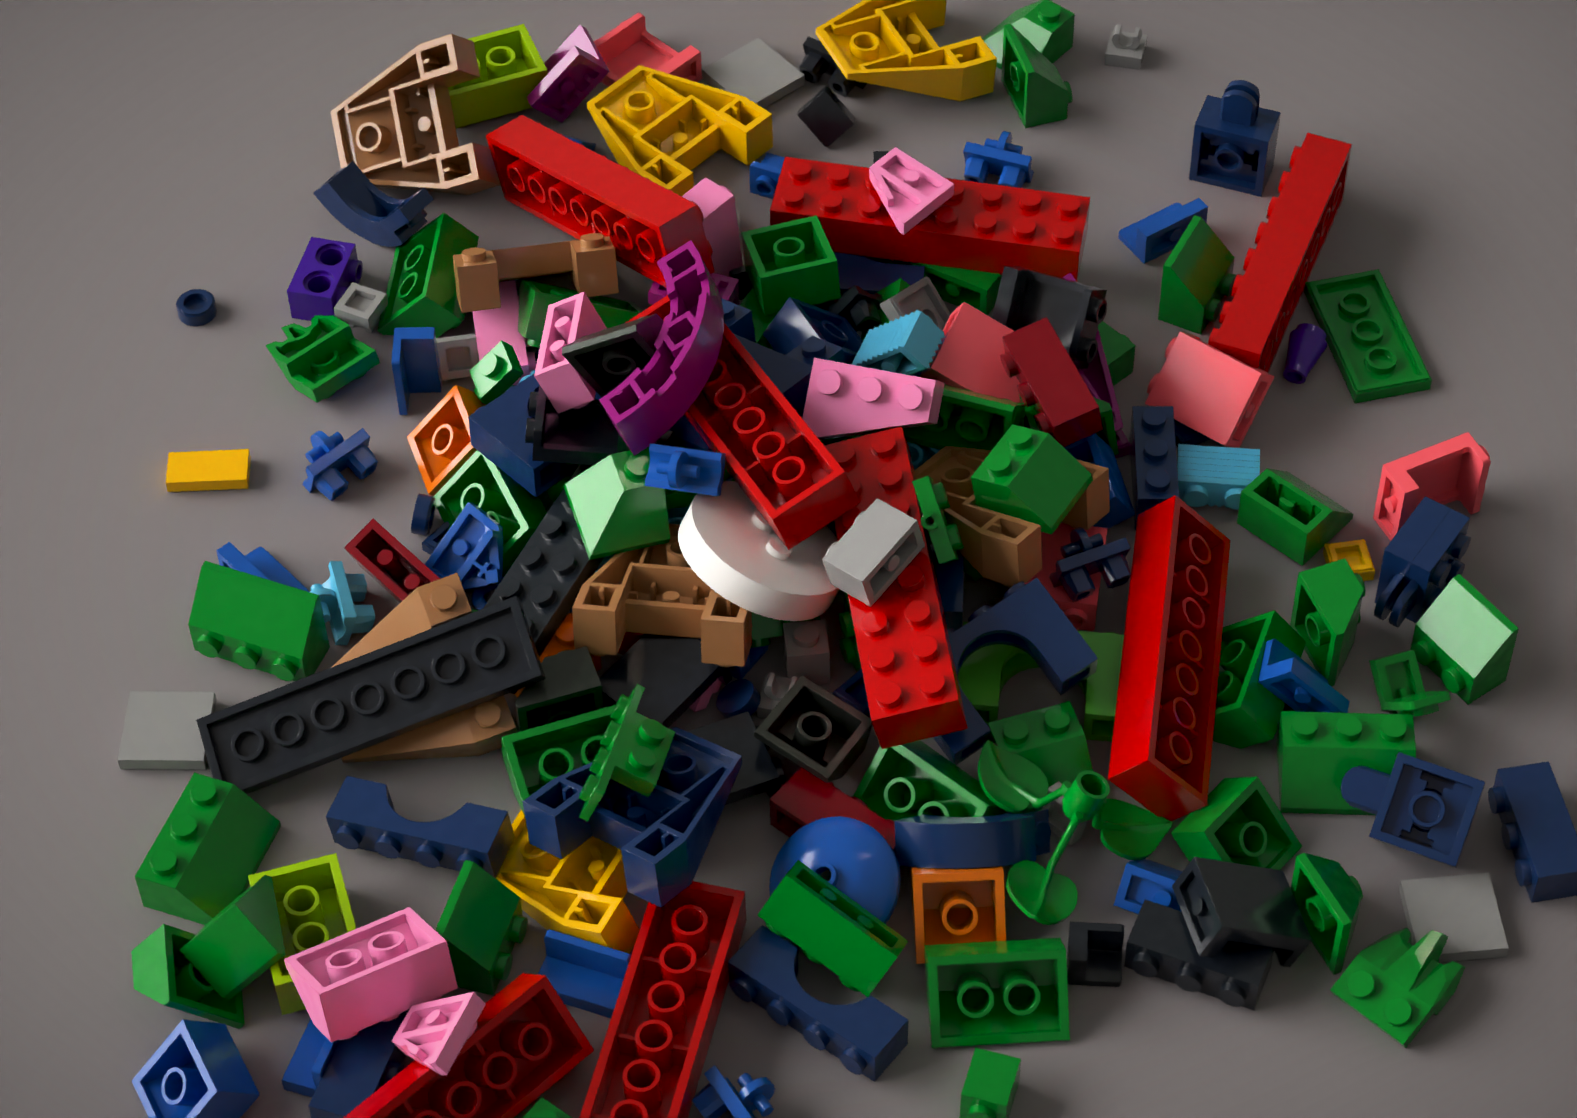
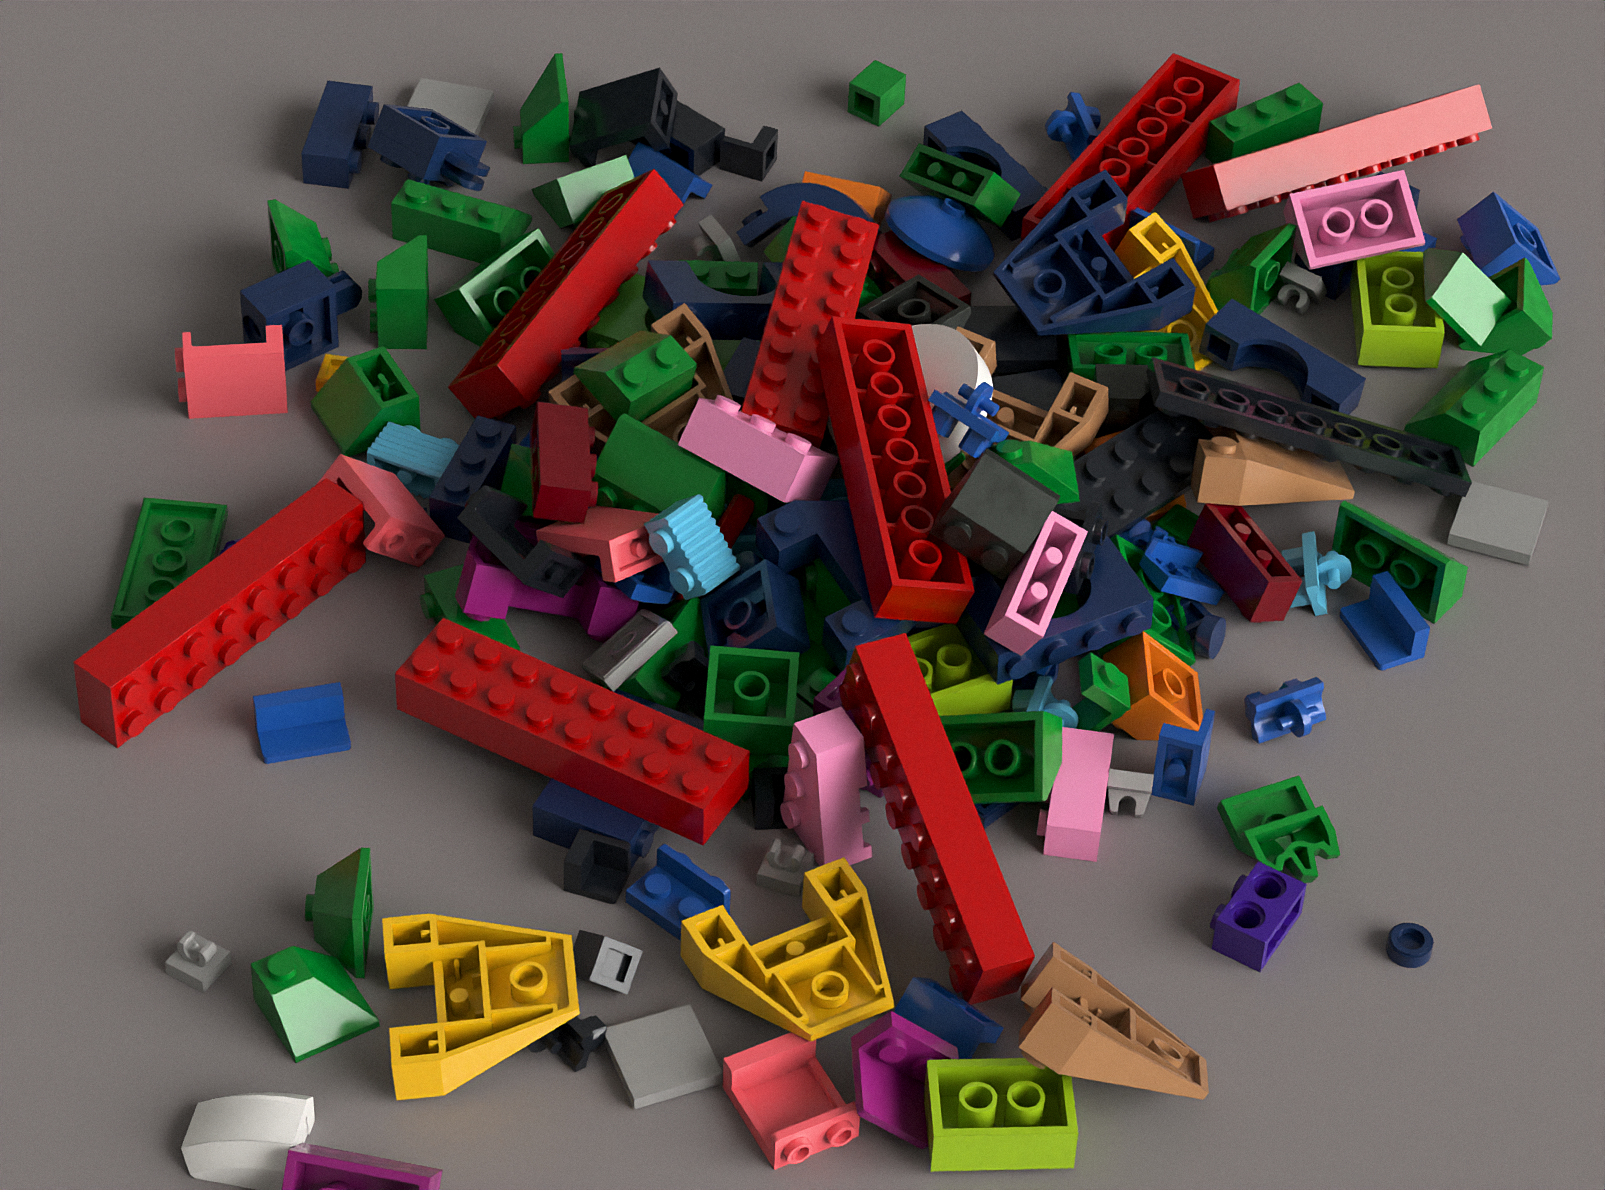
camera: 165 degrees left, 5 degrees down
(208, 470) = (1423, 753): yellow tile -> none
(361, 306) = (1224, 862): light grey tile -> none
(370, 211) = (1171, 976): dark blue arch -> none
(423, 278) = (1140, 881): green slope -> none
(438, 1029) = (1309, 149): bright pink wing -> none
(587, 260) = (1040, 819): medium nougat wedge -> none
(632, 754) = (1095, 284): green bracket -> none
(684, 358) = (932, 471): magenta brick -> none
(873, 552) = (817, 293): light grey brick -> none
(908, 188) = (595, 697): bright pink wing -> none
(933, 501) = (750, 325): green plate -> none
(997, 992) = (838, 149): green slope -> none
(999, 159) = (439, 842): blue hips -> none
(1125, 828) = (720, 174): green plant -> none
(1196, 278) = (317, 638): green slope -> none
(1235, 140) = (176, 755): dark blue brick -> none
(1298, 682) = (466, 252): blue panel -> none
(1399, 983) = (512, 73): green plate -> none
(1401, 685) = (373, 228): green bracket -> none

